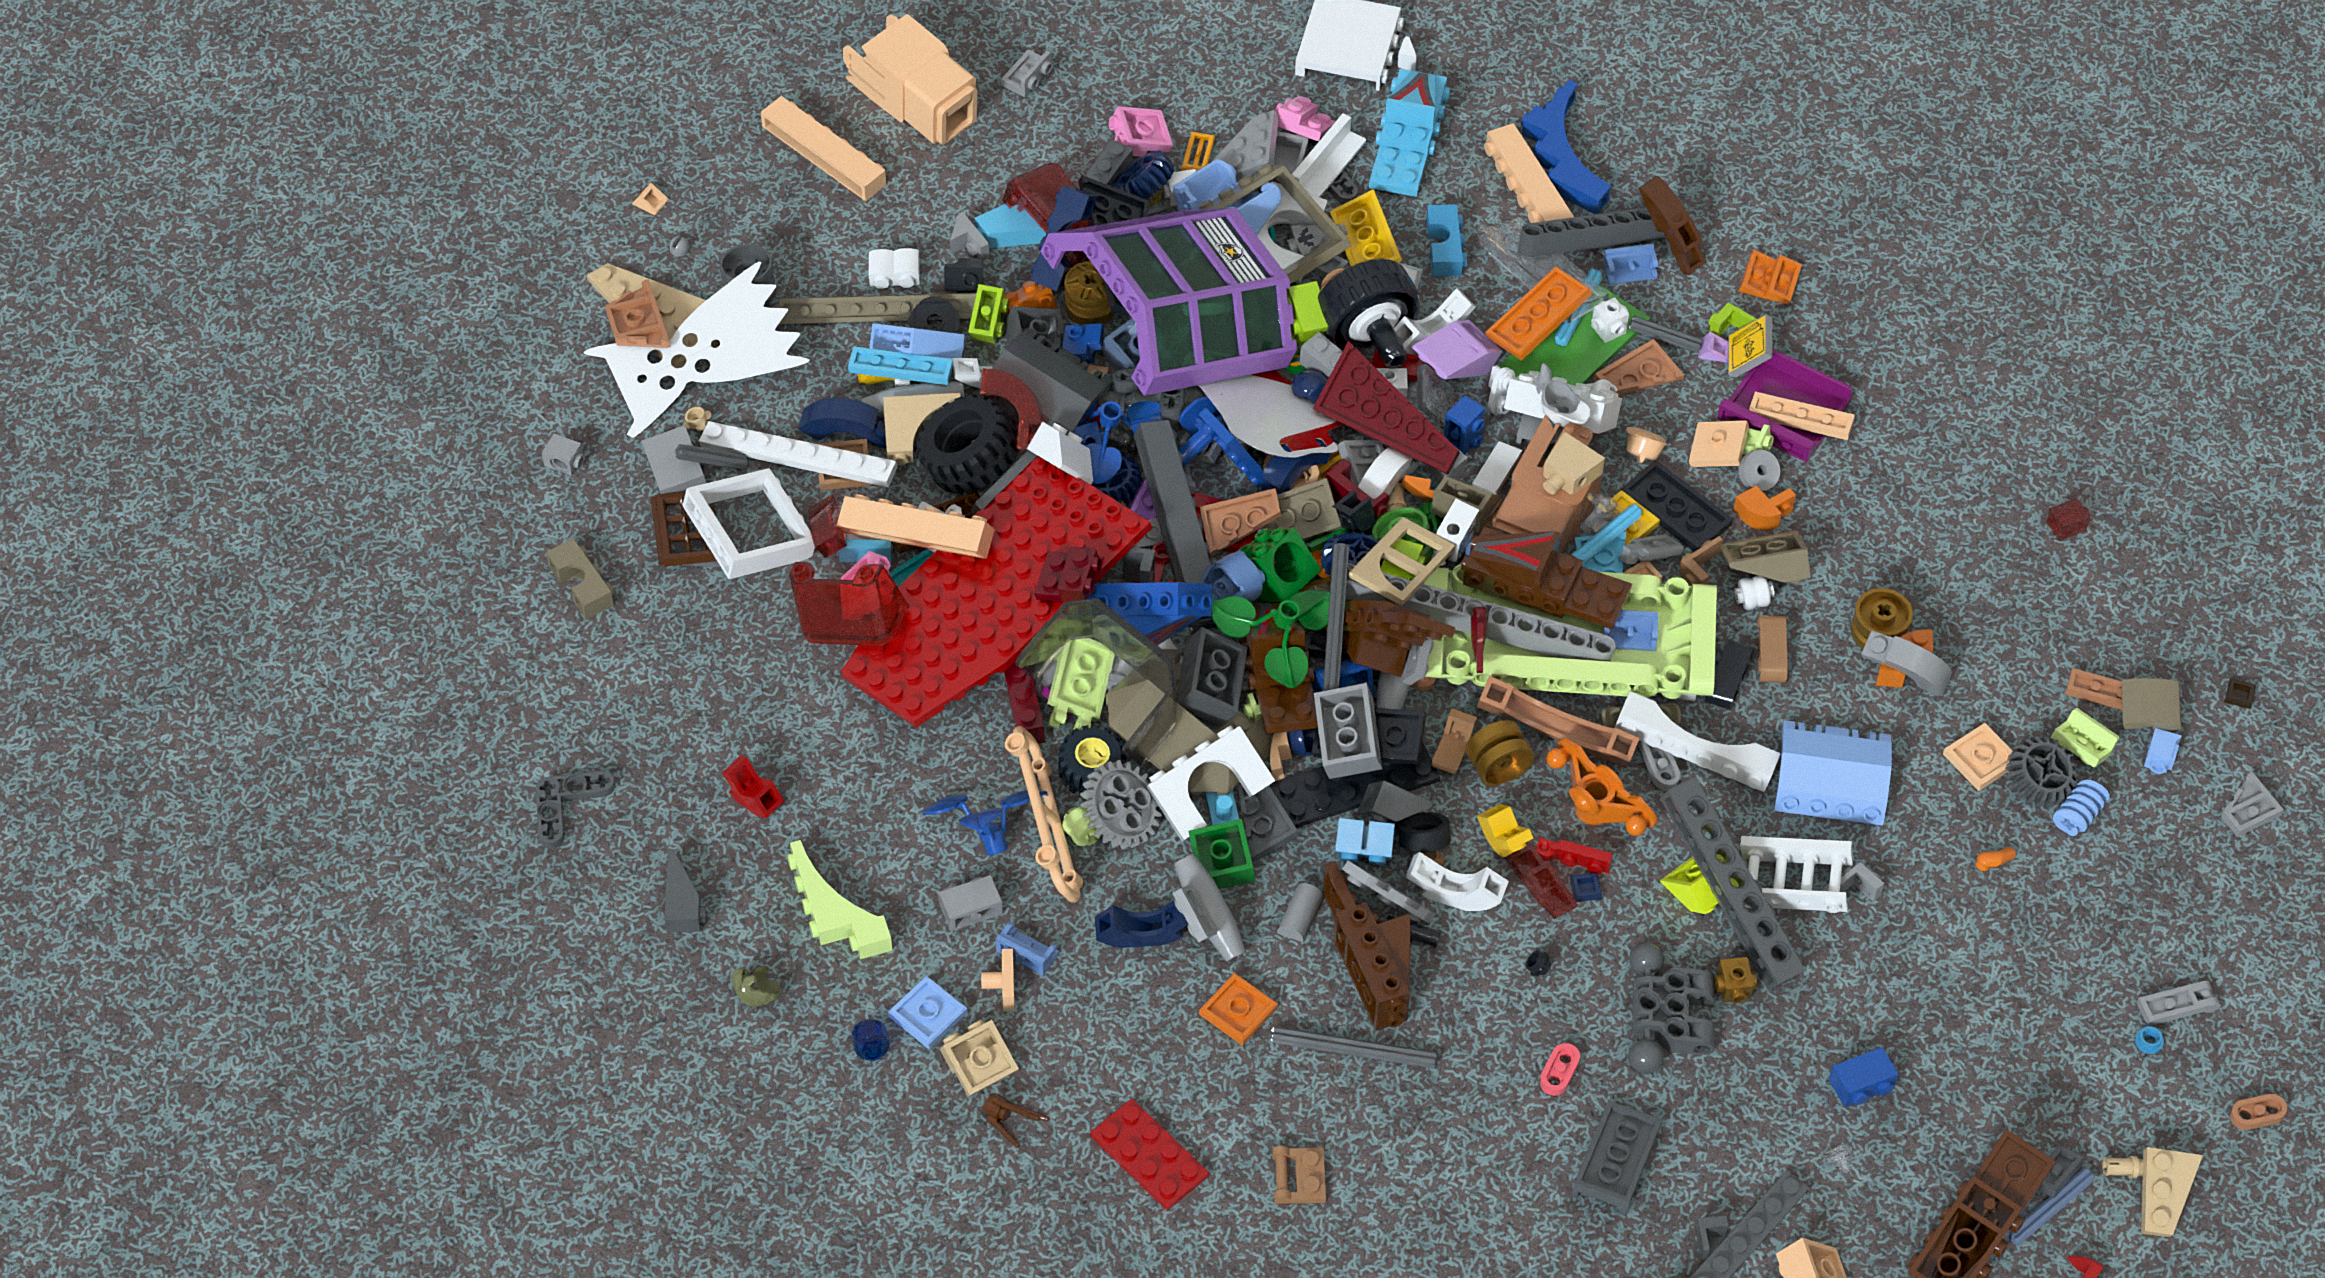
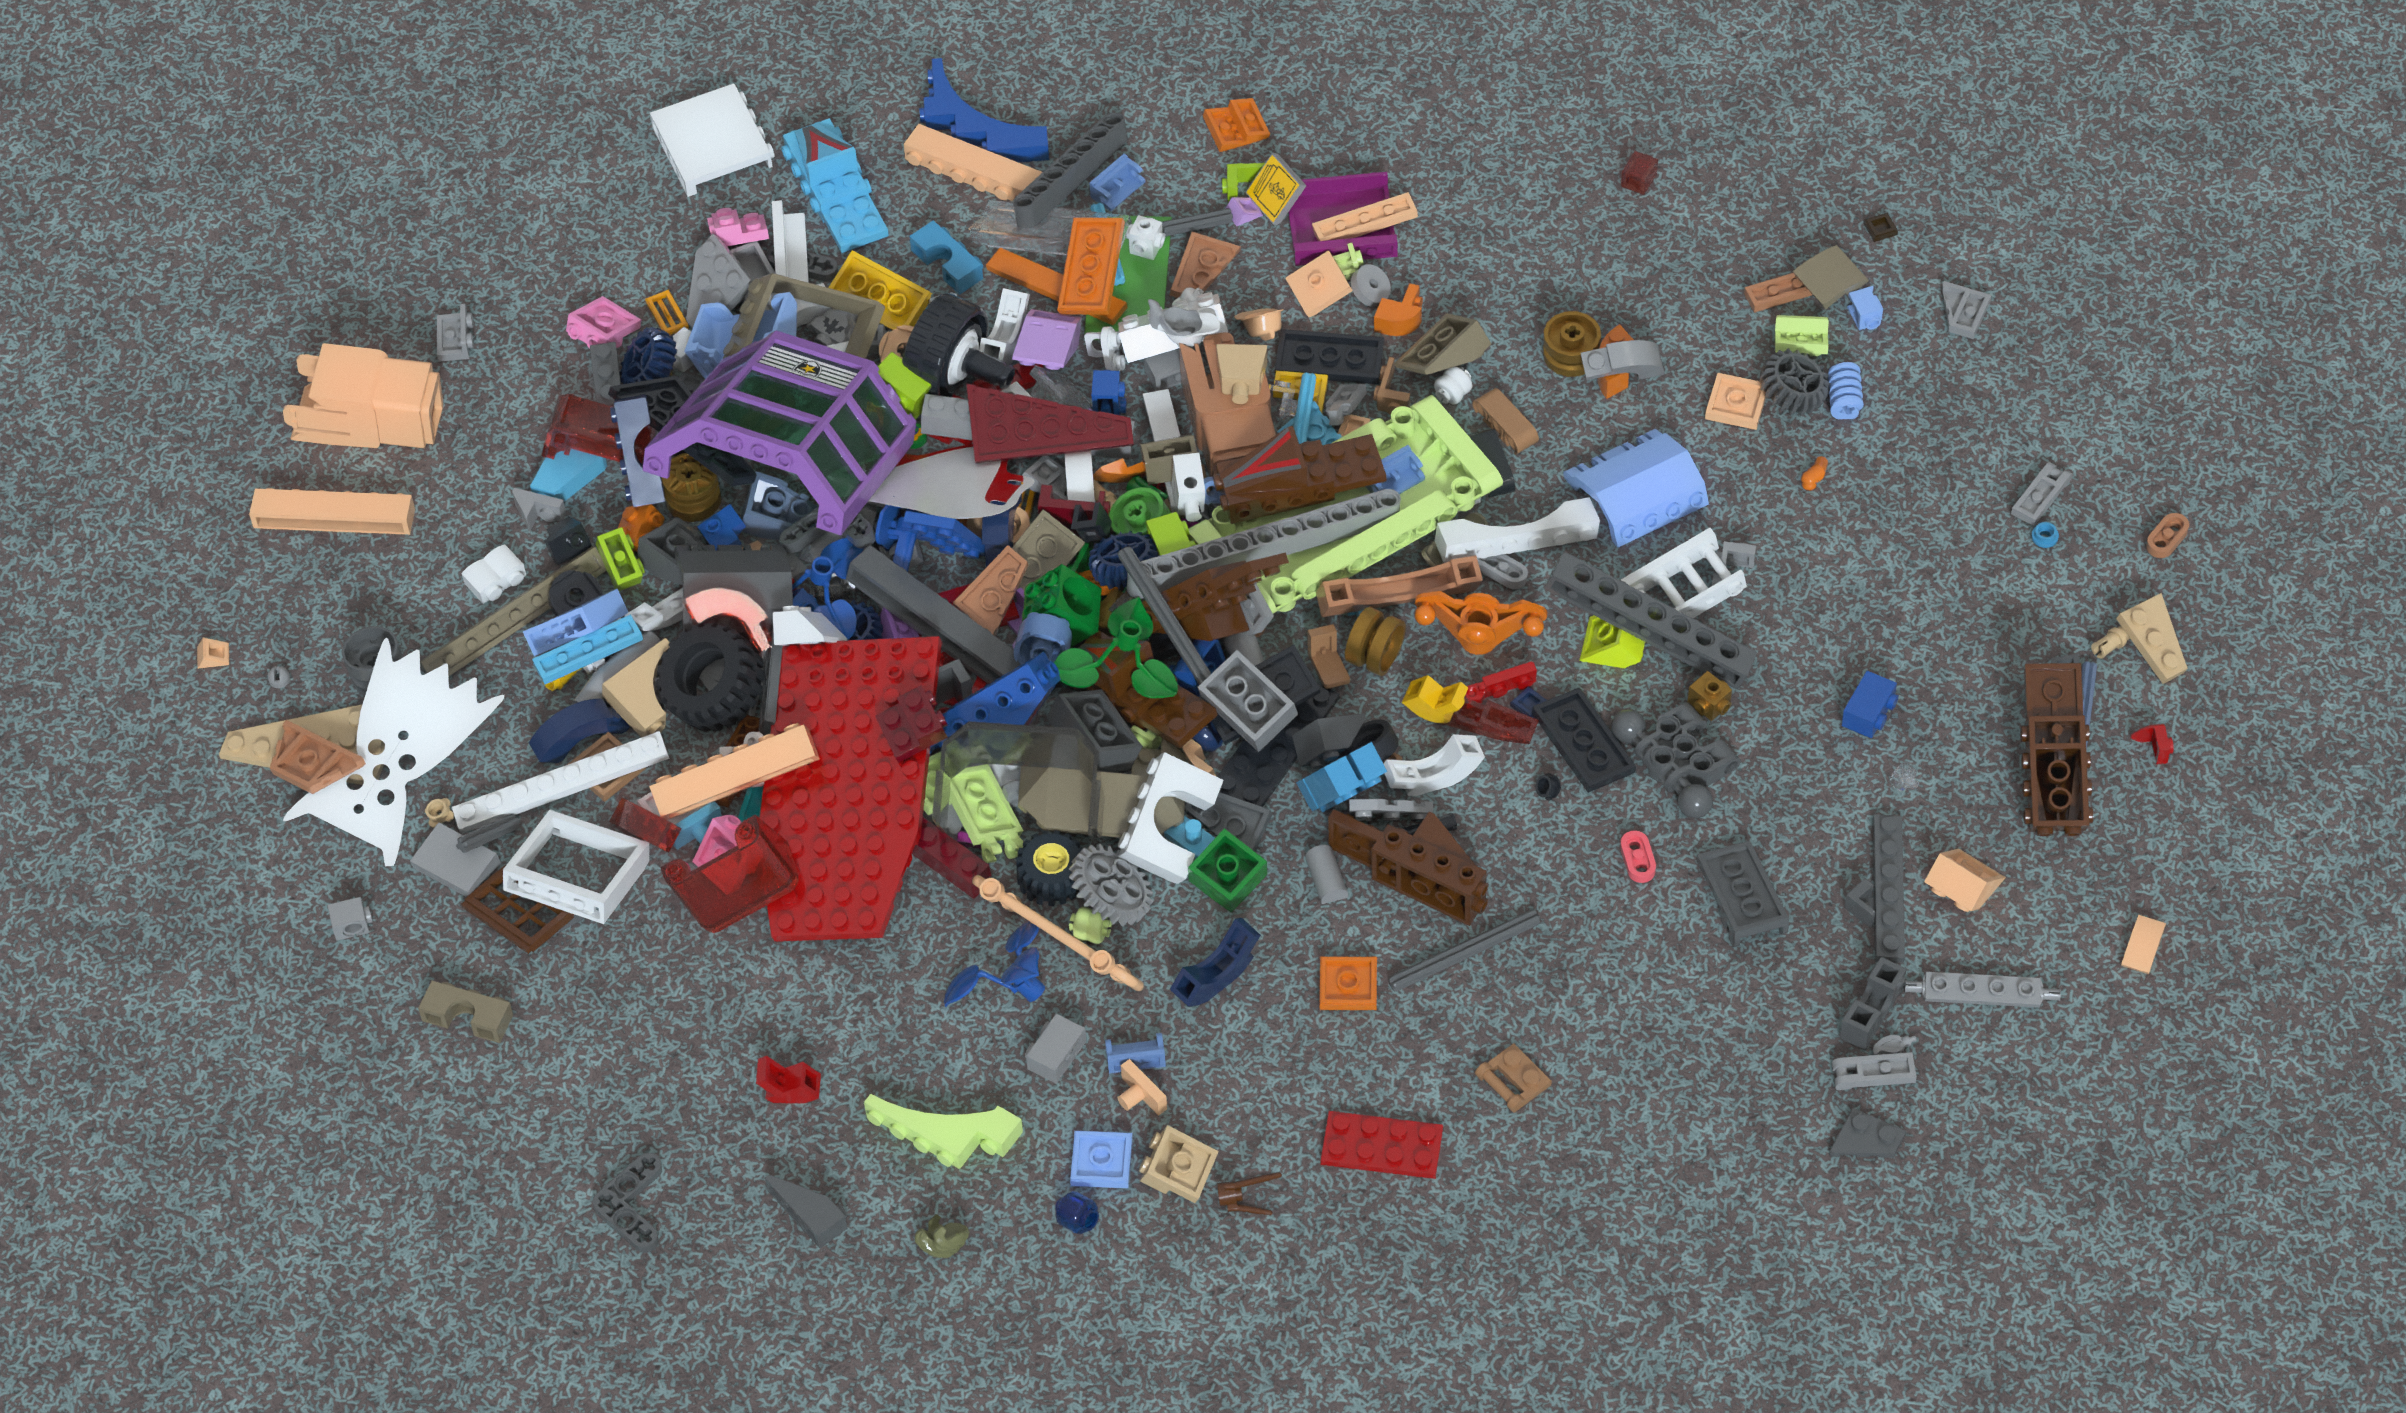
camera: 35 degrees left, 0 degrees up
(1206, 909) = (1256, 914): light grey plate -> none
(1309, 384) = (951, 444): dark blue hair -> none
(1368, 569) = (1157, 557): tan window -> none
(1407, 55) = (773, 121): white slope -> none
(1479, 628) = (1297, 564): dark red arm -> none
(1500, 301) = (1041, 280): none -> orange tile
(1601, 945) = (1583, 739): none -> black plate
(1673, 220) = (1129, 121): reddish brown slope -> none

